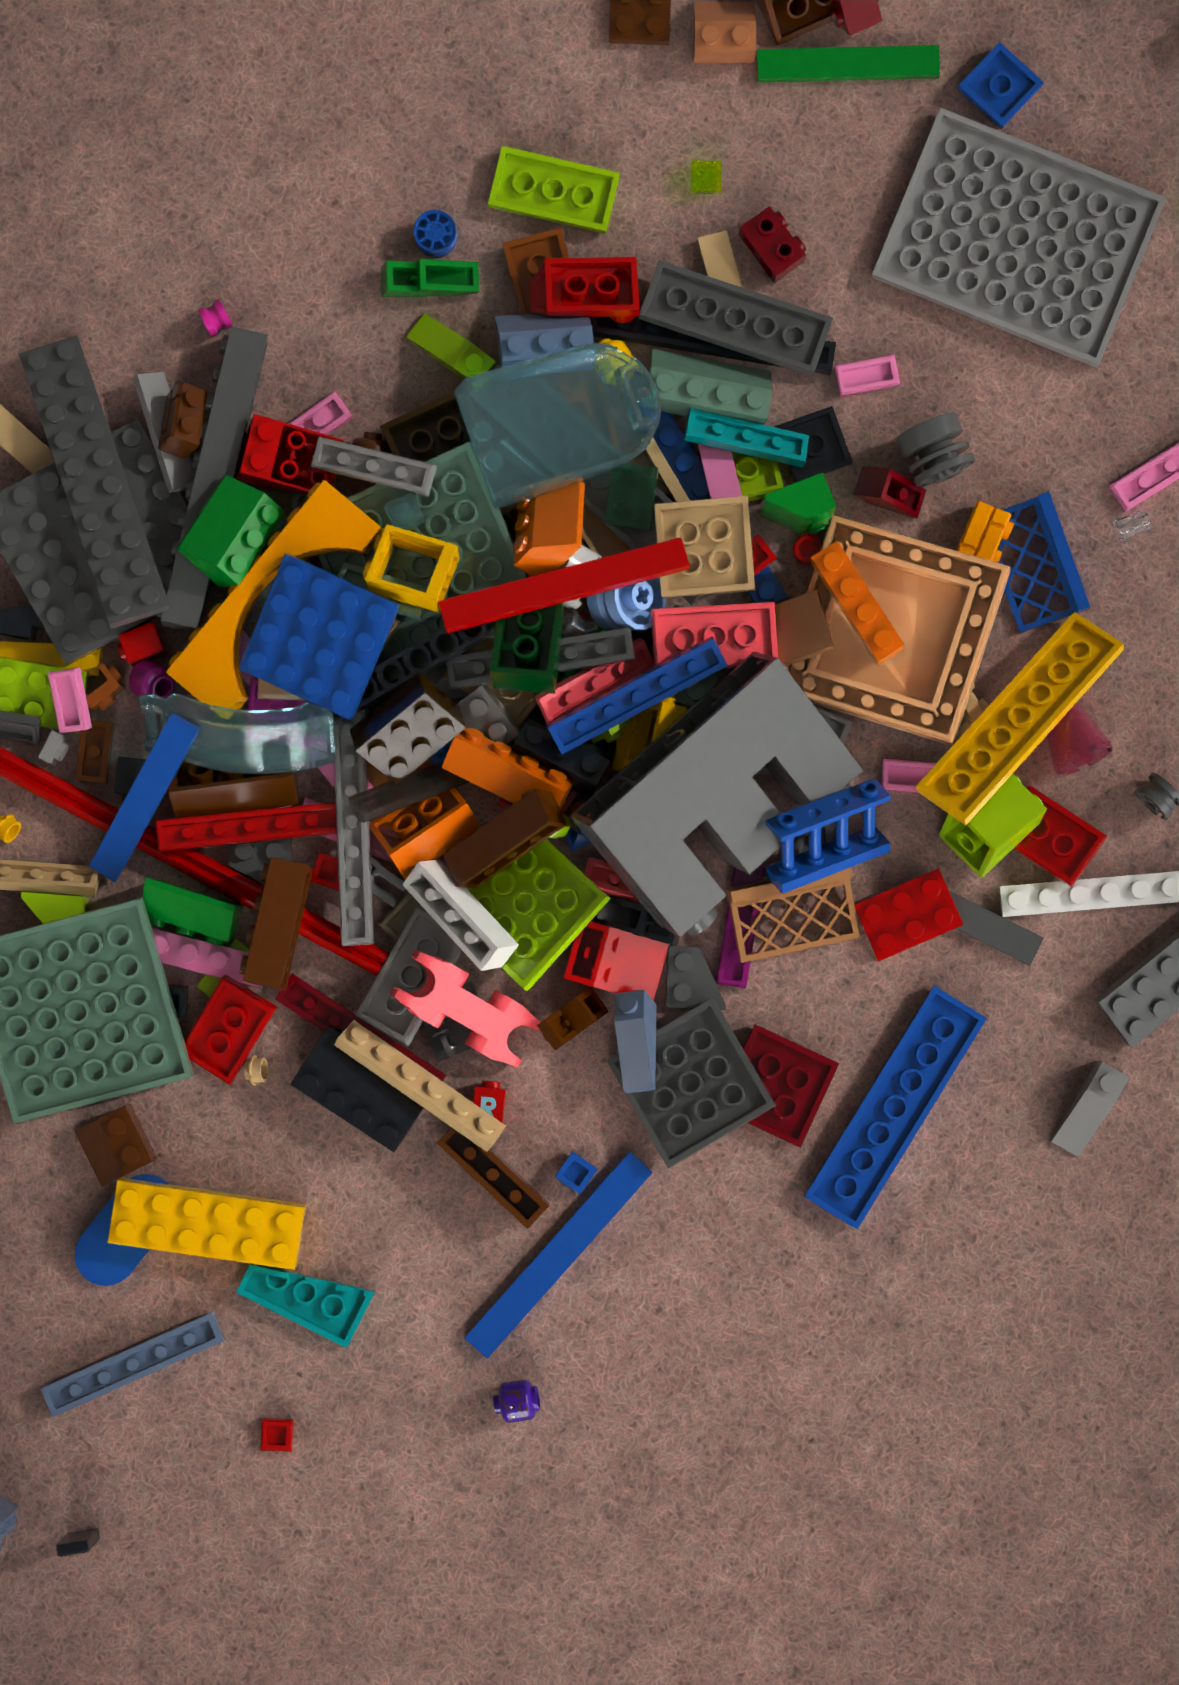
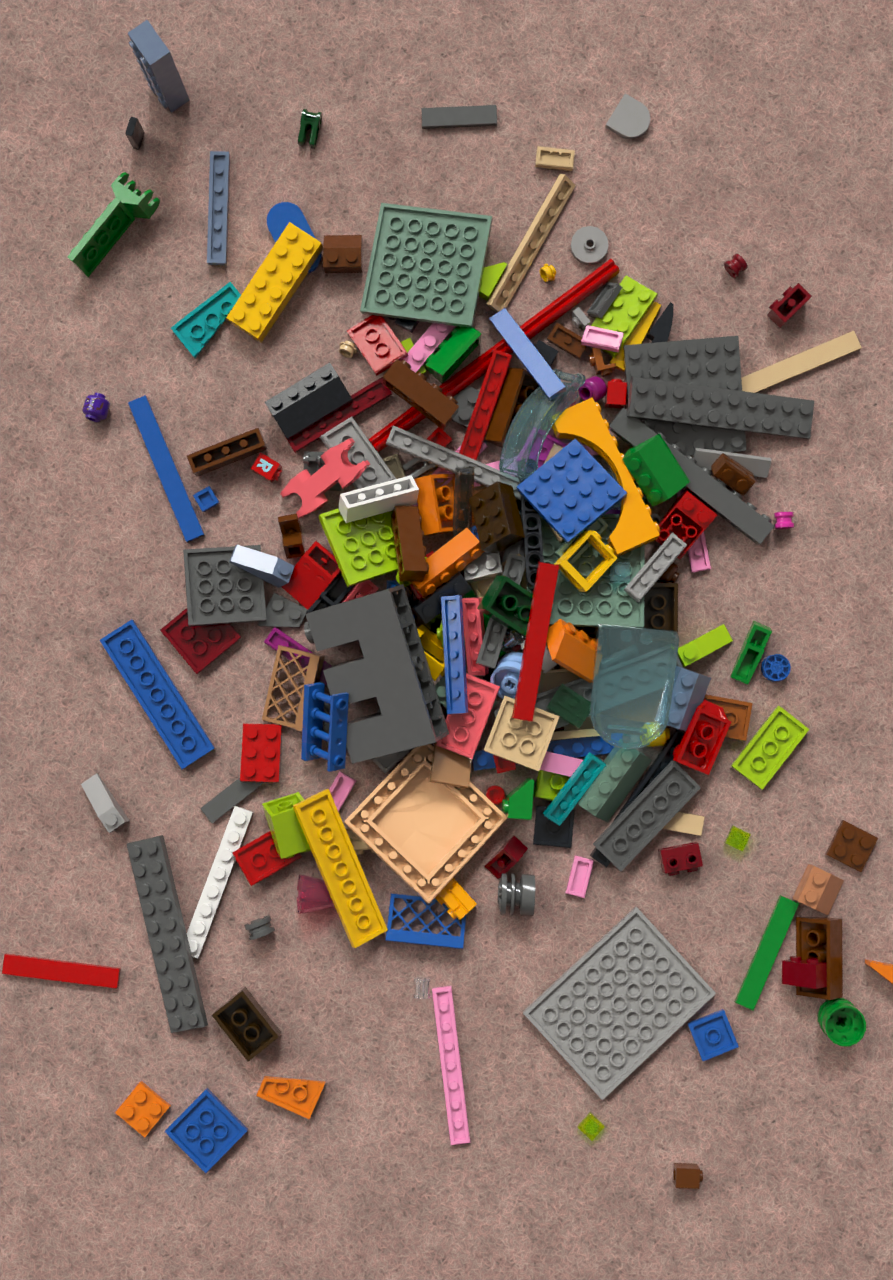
camera: 110 degrees right, 0 degrees up
(229, 1508) = (112, 223): none -> green hinge
(277, 1434) = (142, 269): red tile -> none
(420, 1085) = (294, 433): tan plate -> none
(857, 603) = (449, 806): orange brick -> none

